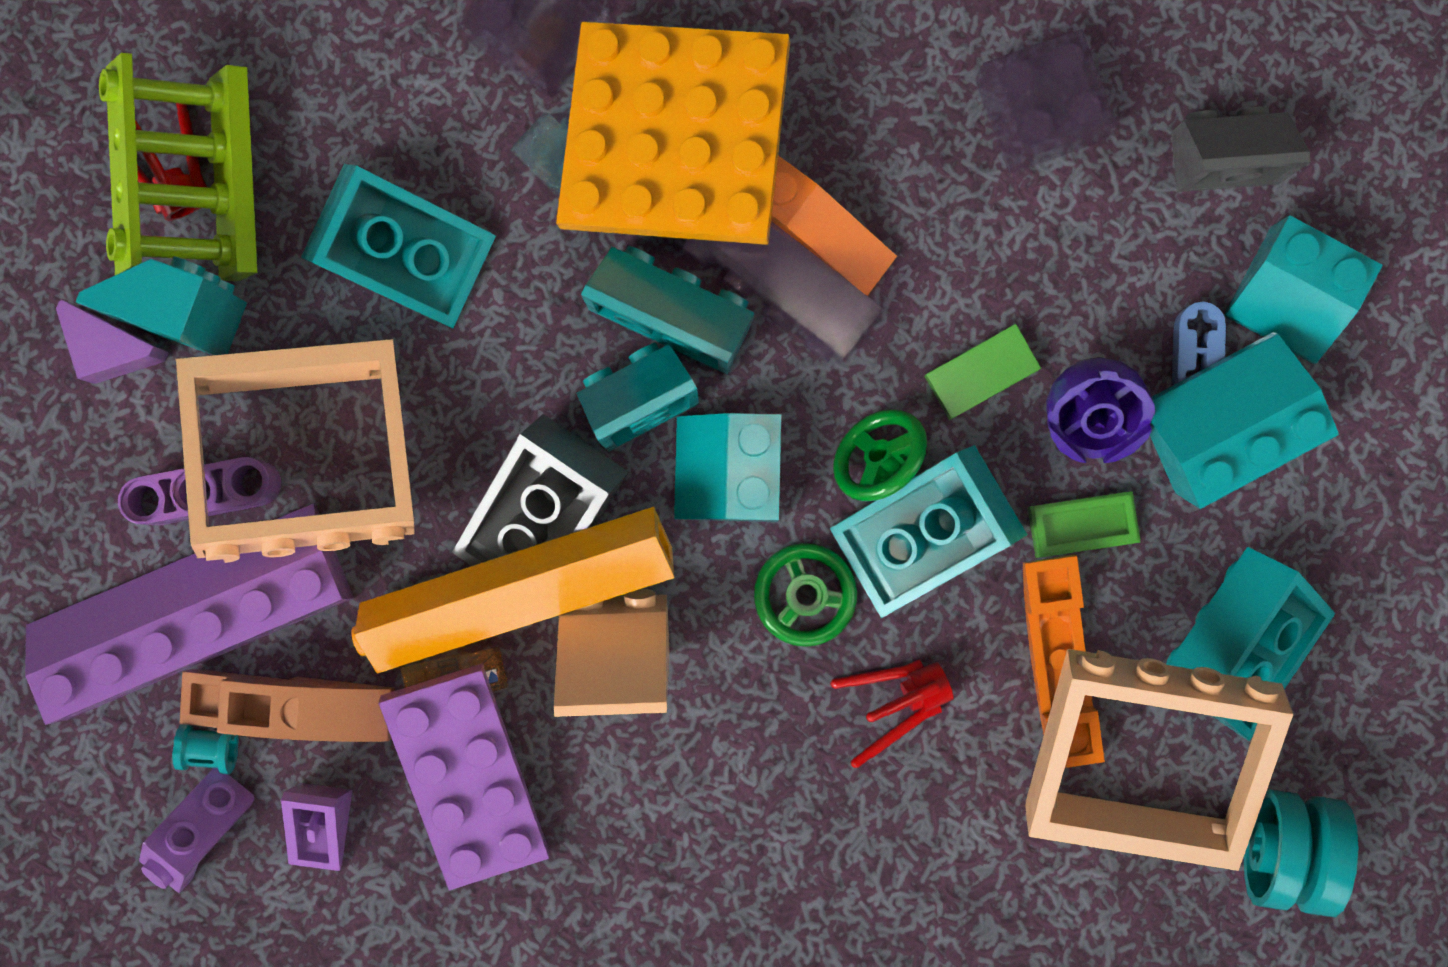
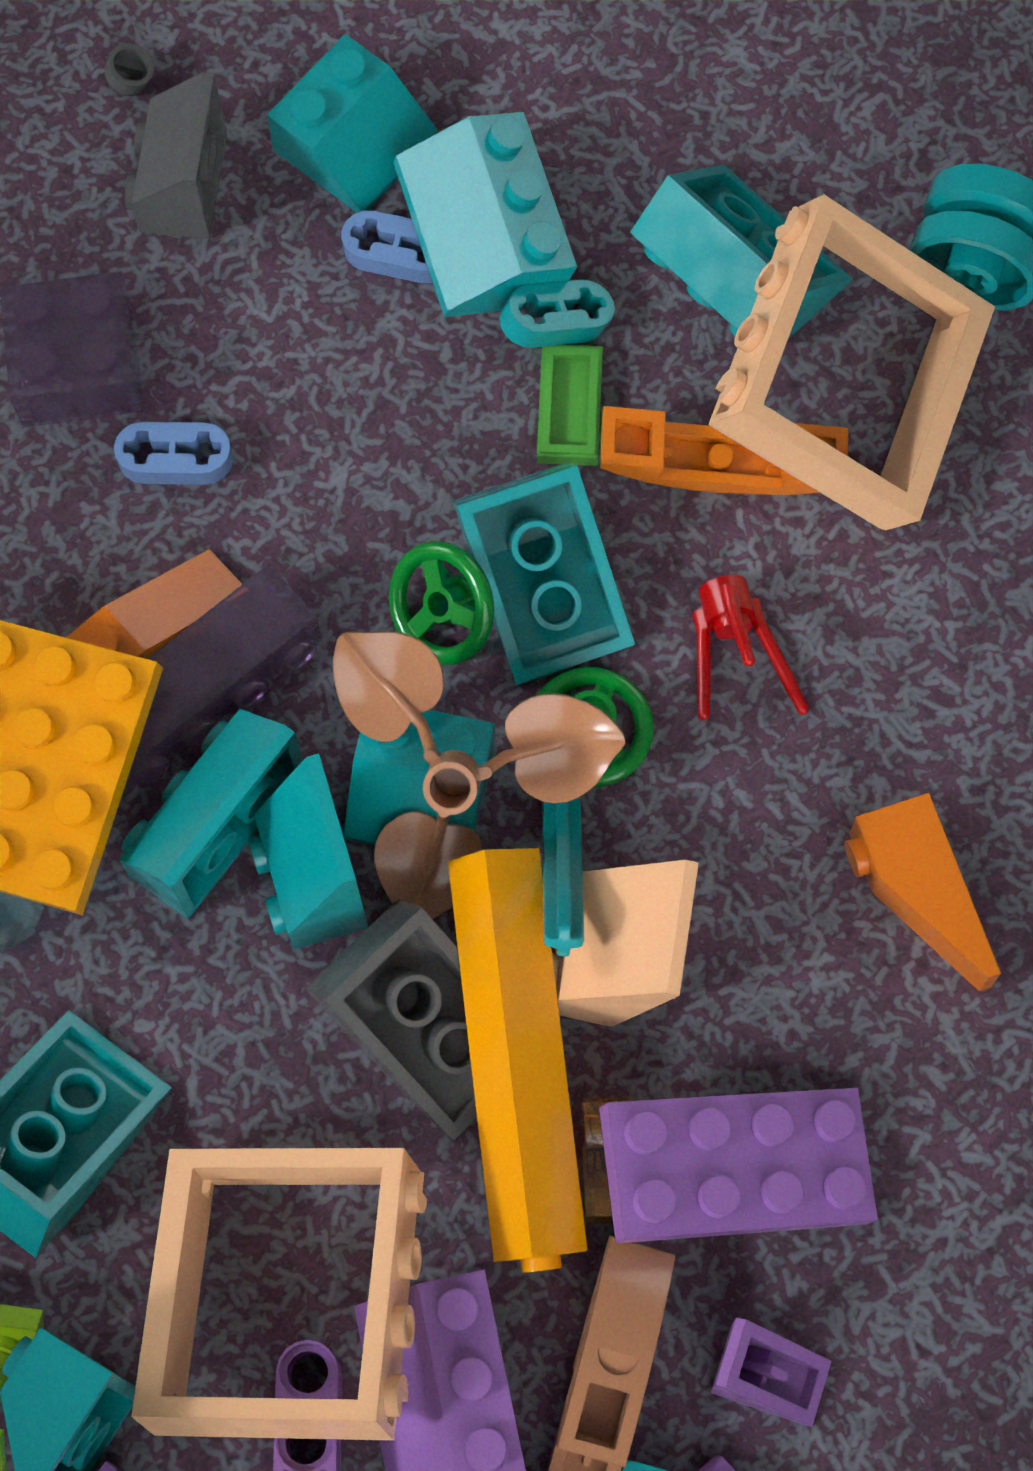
camera: 75 degrees left, 15 degrees down
(667, 598) = (562, 876): none -> teal axle
(730, 877) = (918, 878): none -> orange slope
(761, 573) = (555, 739): none -> nougat plant
(982, 372) = (368, 480): bright green tile -> none
(986, 206) = (173, 447): none -> medium blue beam
(1099, 410) = (441, 352): dark purple cylinder -> none
(1150, 503) = (559, 322): none -> teal beam
(1327, 87) = (129, 61): none -> dark grey hinge

